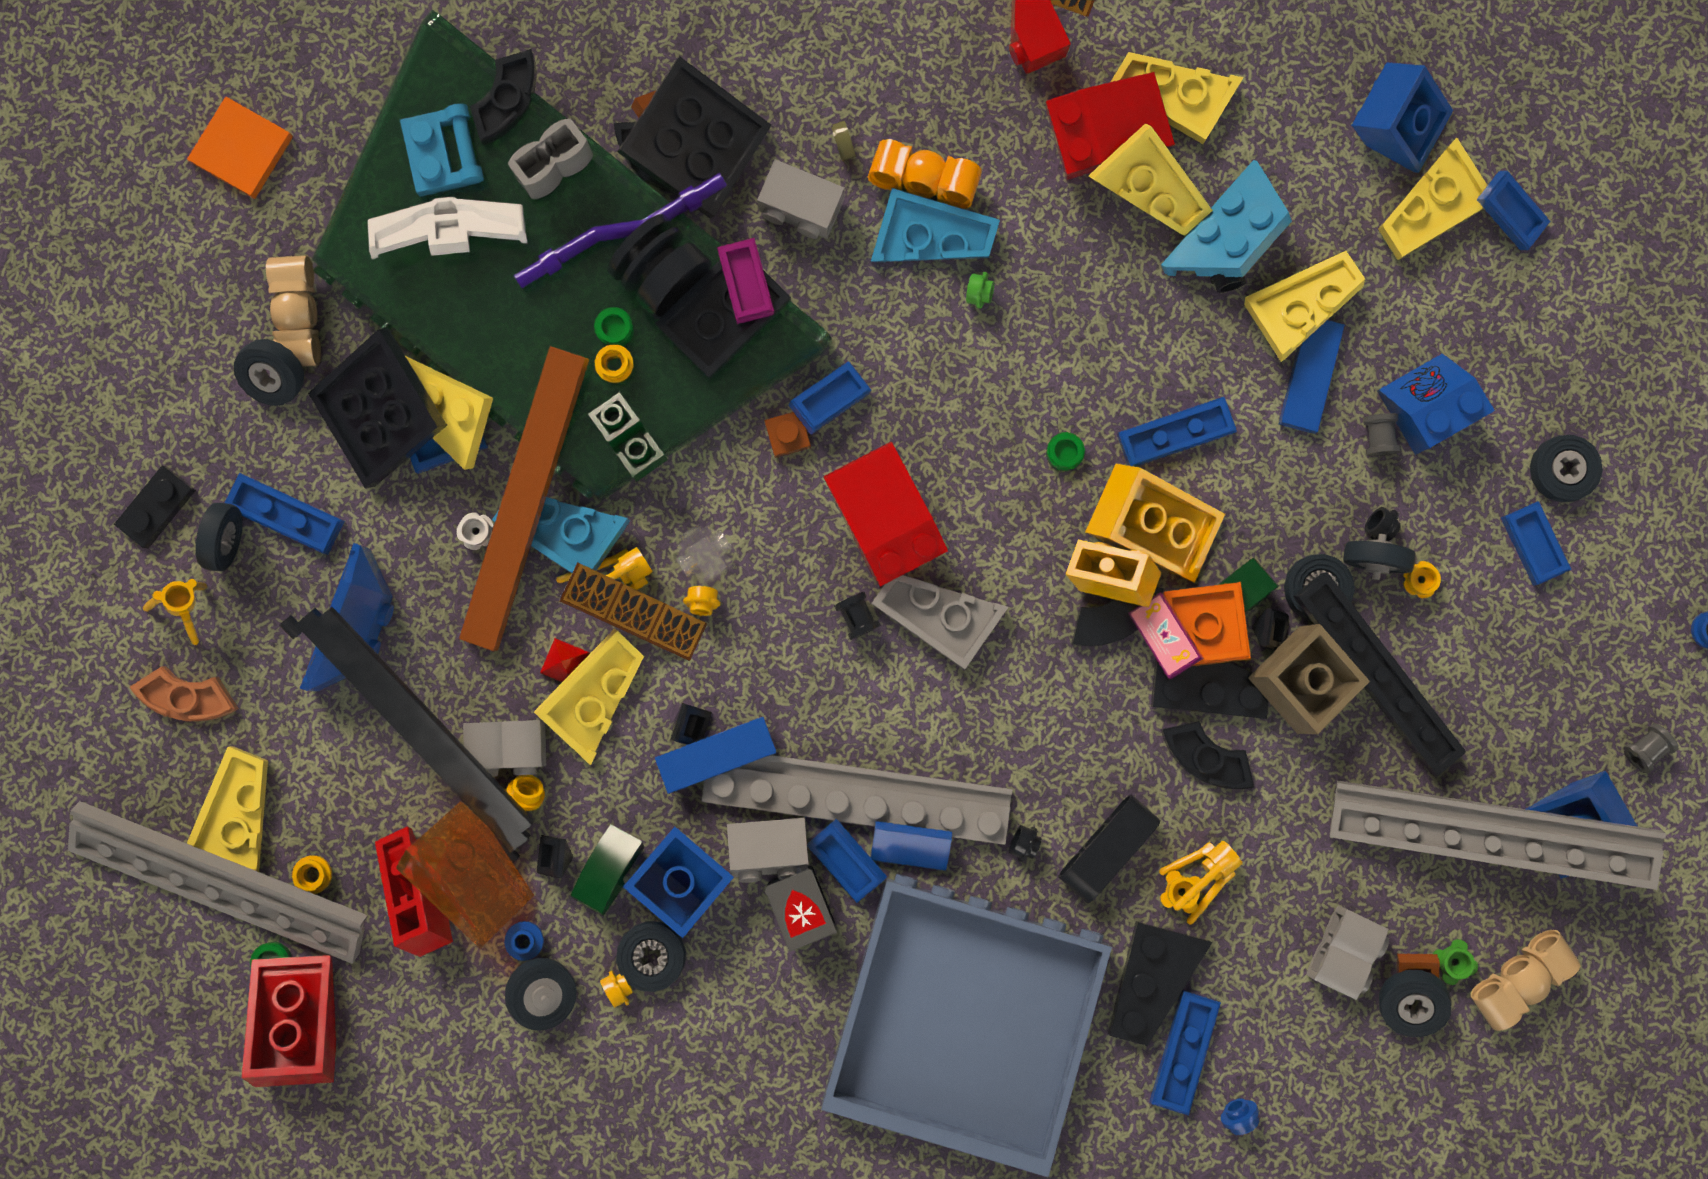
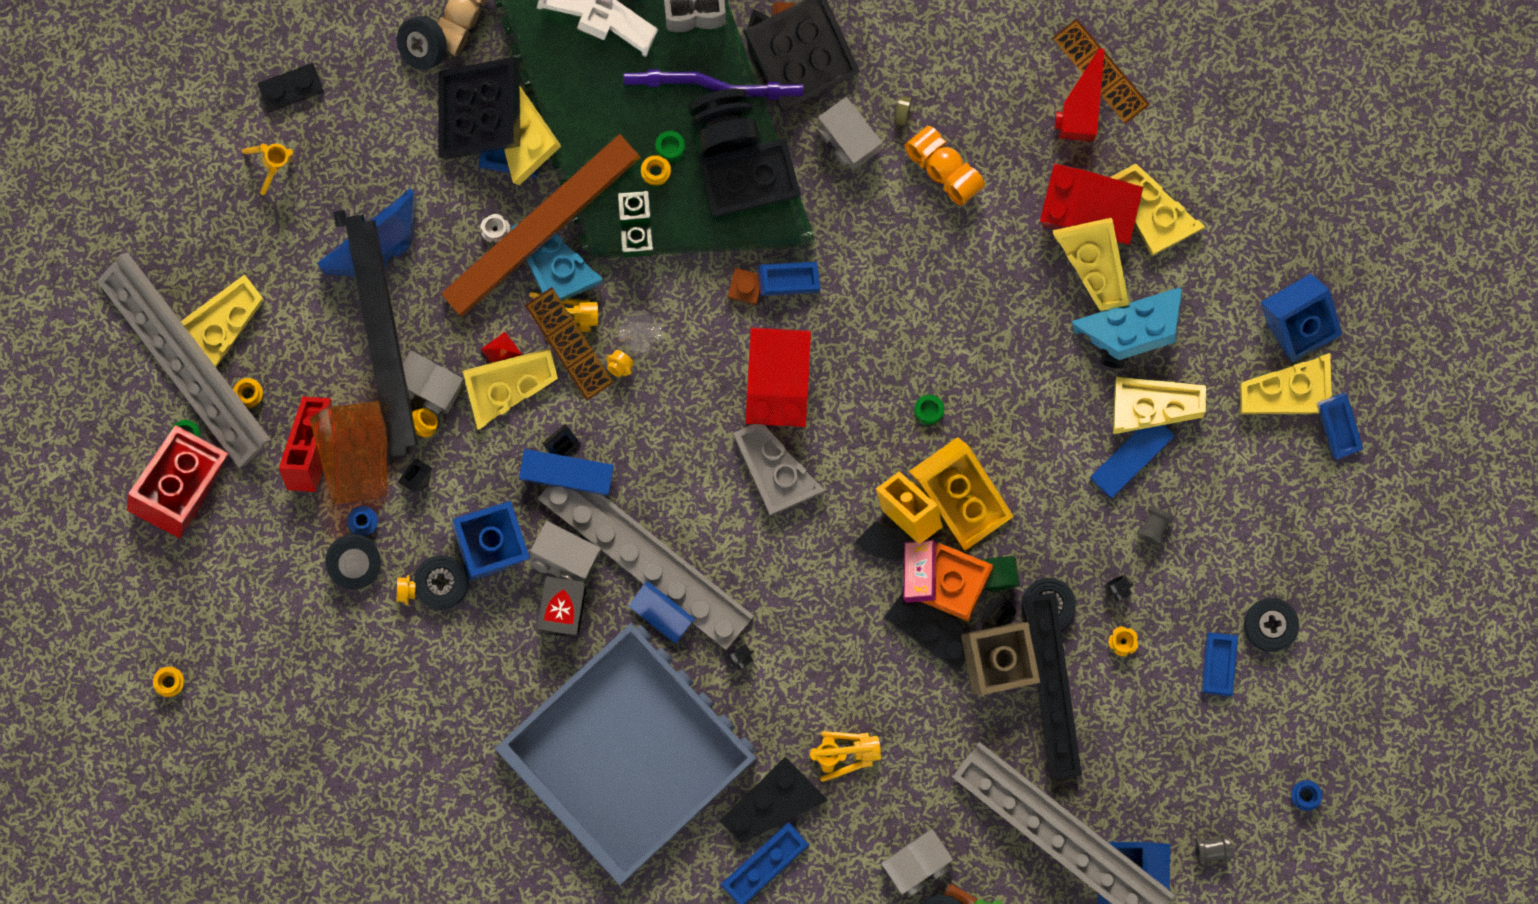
camera: 30 degrees right, 5 degrees down
(183, 699) = (233, 227): nougat tile -> none
(218, 536) = (323, 132): black bush -> none
(284, 514) = (373, 142): blue tile -> none
(605, 869) = (443, 506): dark green slope -> none
(745, 280) = (776, 166): magenta tile -> none
(846, 860) = (611, 596): blue tile -> none
(857, 615) = (718, 436): black bush -> none
(931, 230) = (926, 206): dark azure wing -> none
(980, 290) = (935, 265): bright green plate -> none
(1109, 848) = (795, 694): black beam -> none
(1176, 432) = (1014, 442): blue tile -> none
(1205, 759) = (899, 675): black tile -> none
(1379, 557) = (1100, 605): black wheel -> none
(1435, 402) = (1204, 525): blue slope -> none

